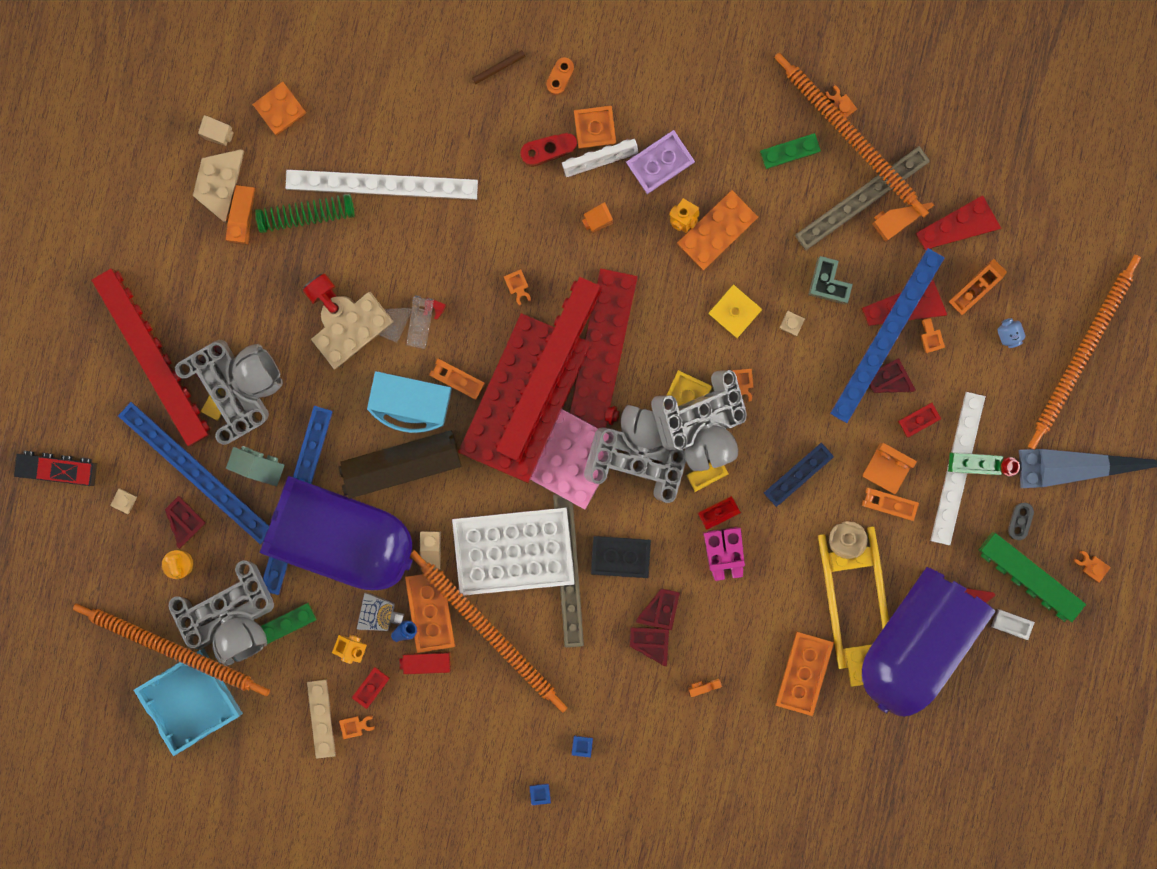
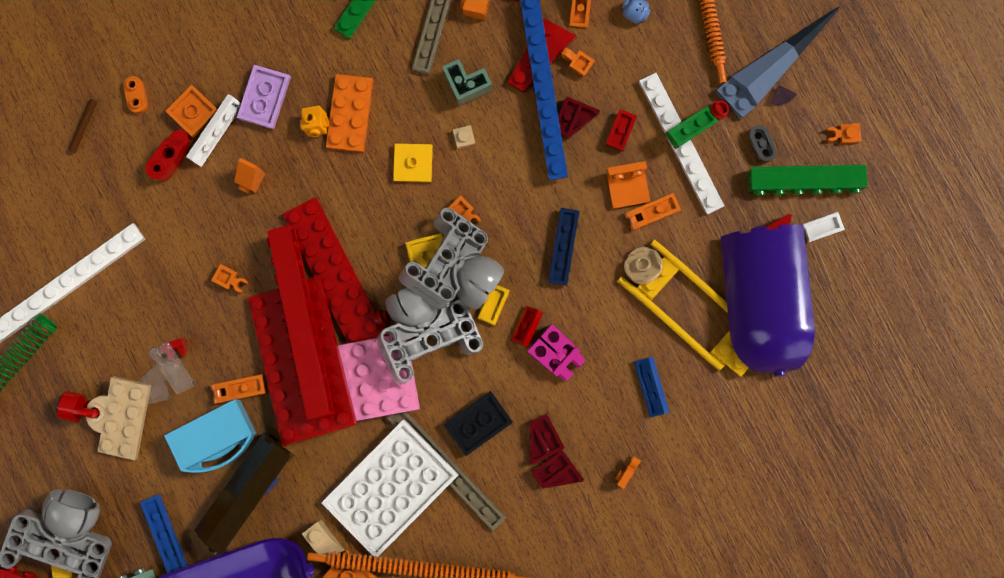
camera: 30 degrees left, 5 degrees down
(776, 638) = (651, 387): none -> blue plate
(804, 673) = (696, 397): orange plate -> none
(1068, 496) = (782, 96): none -> tile

